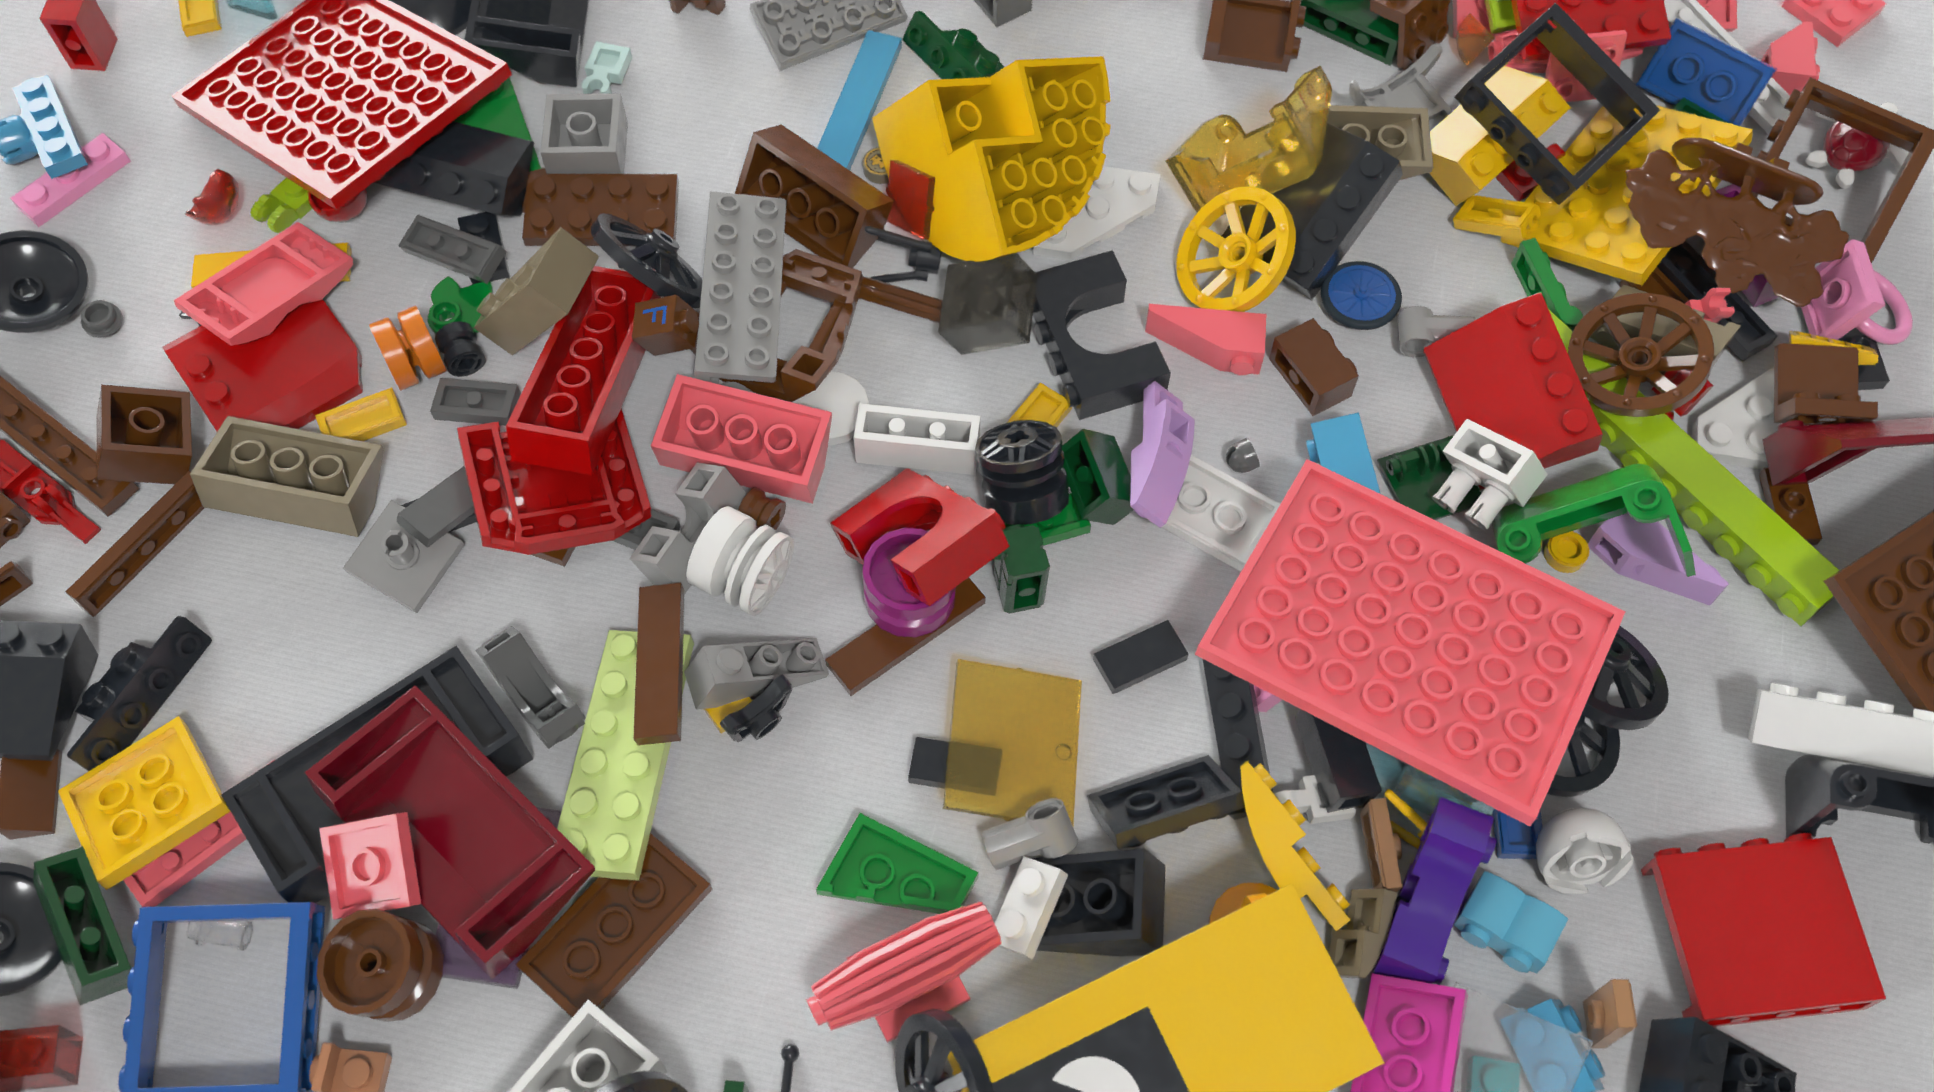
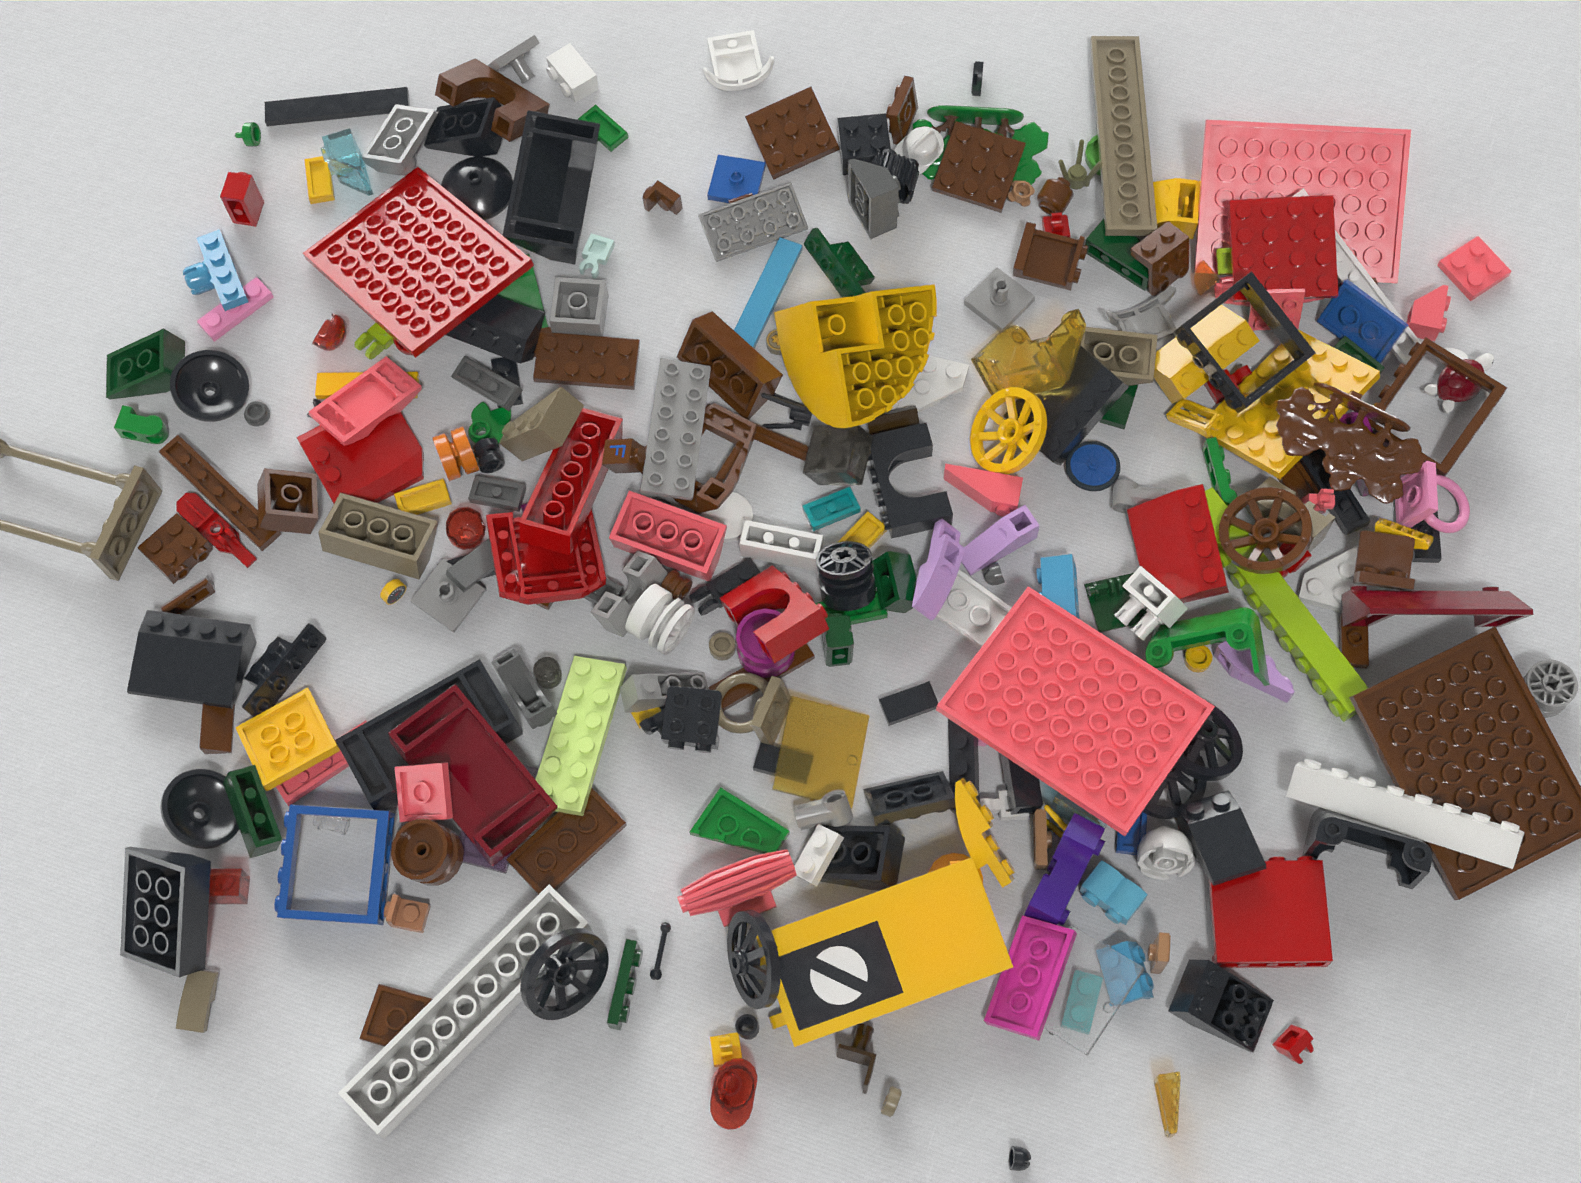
camera: 10 degrees right, 5 degrees up
(137, 547) = (282, 574): reddish brown tile -> none
(316, 557) = (393, 591): none -> yellow tile
(426, 453) = (465, 528): none -> clear red hair
(563, 650) = (546, 666): none -> clear smoke wheel
(655, 250) = (618, 400): black wheel -> none
(659, 664) = (604, 682): reddish brown tile -> none
(803, 708) = (691, 718): none -> black bracket
(831, 506) = (724, 584): none -> black hinge
(840, 596) = (722, 646): none -> dark tan tile
(912, 198) = (795, 373): clear red piece -> none
(924, 685) = (768, 711): none -> dark tan tile
(986, 383) = (831, 508): none -> teal plate
(1061, 251) = (894, 420): none -> dark brown tile
(1189, 89) = (999, 300): none -> light grey tile
(1247, 403) = (1000, 540): none -> lavender slope
(1313, 366) = (1053, 516): reddish brown brick -> none
(1360, 945) = (1015, 899): dark tan slope -> none
(1386, 222) = (1119, 412): none -> dark green tile
(1669, 817) = (1220, 837): none -> black slope

